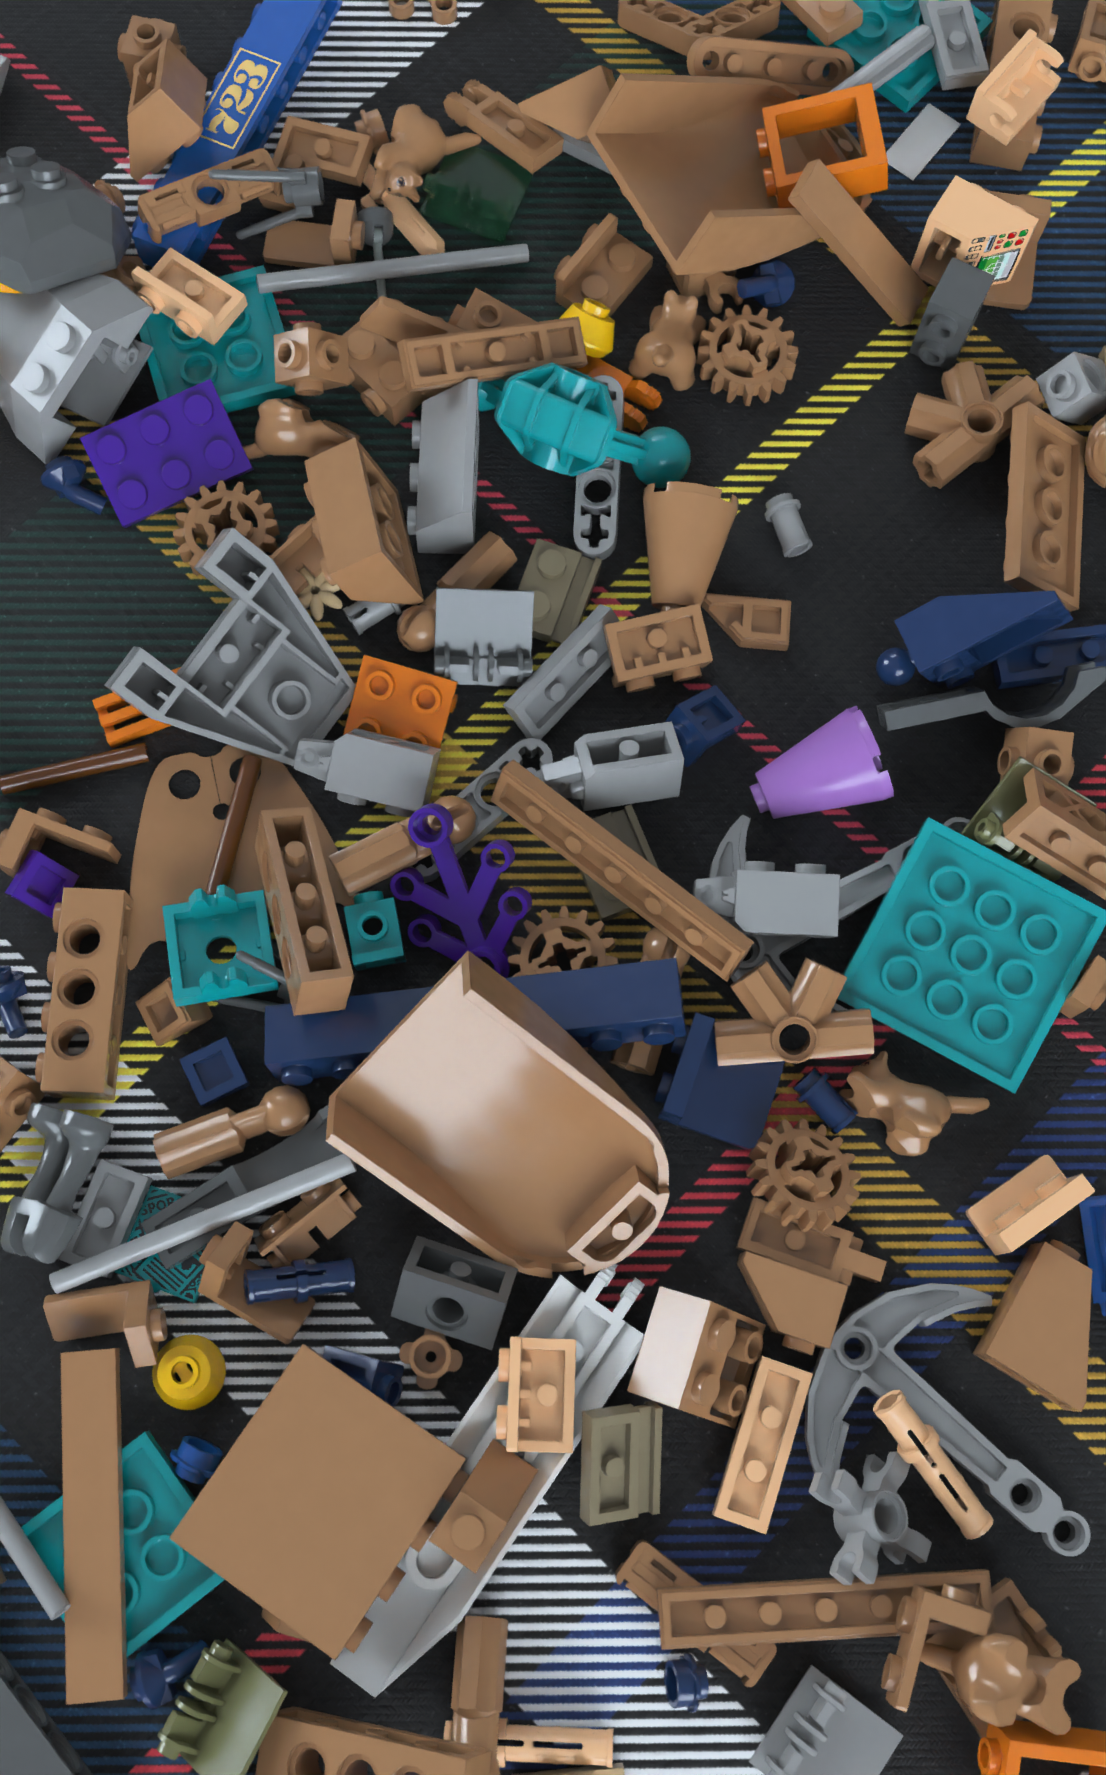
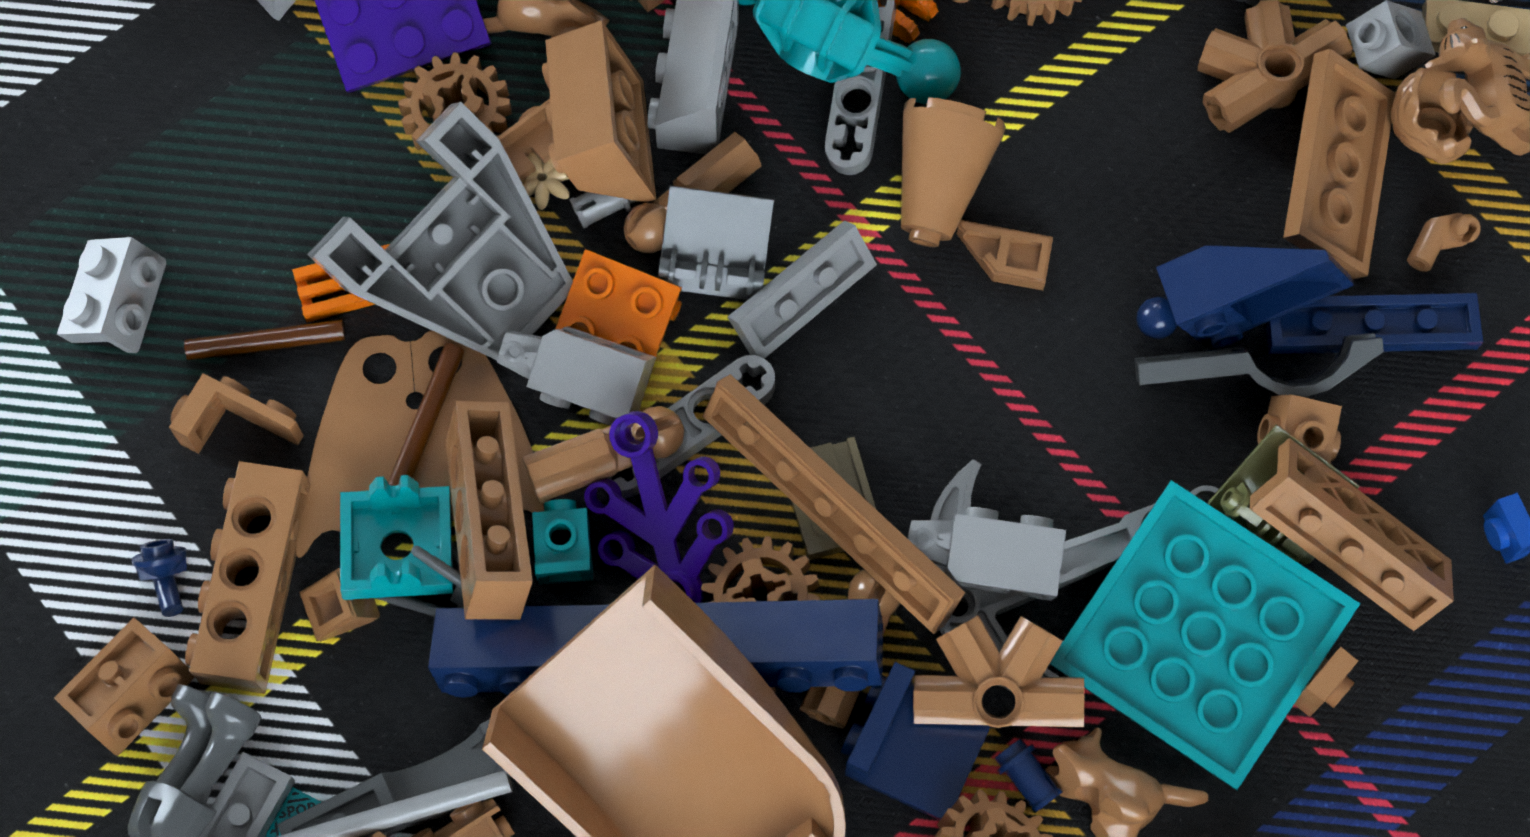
camera: 10 degrees right, 5 degrees down
(41, 883) = (215, 455): dark purple plate -> none
(65, 477) = (291, 33): dark blue plate -> none
(214, 1072) = (374, 674): dark blue plate -> none
(224, 1132) = (378, 738): medium nougat piece -> none
(561, 589) = (805, 201): dark tan plate -> none
(619, 767) = (845, 395): light grey hinge -> none
(658, 647) = (901, 273): medium nougat bracket -> none
(704, 722) = (938, 359): dark blue bracket -> none
(787, 522) = (1056, 144): light grey pin -> none
(825, 770) = (1066, 421): medium lavender cone -> none

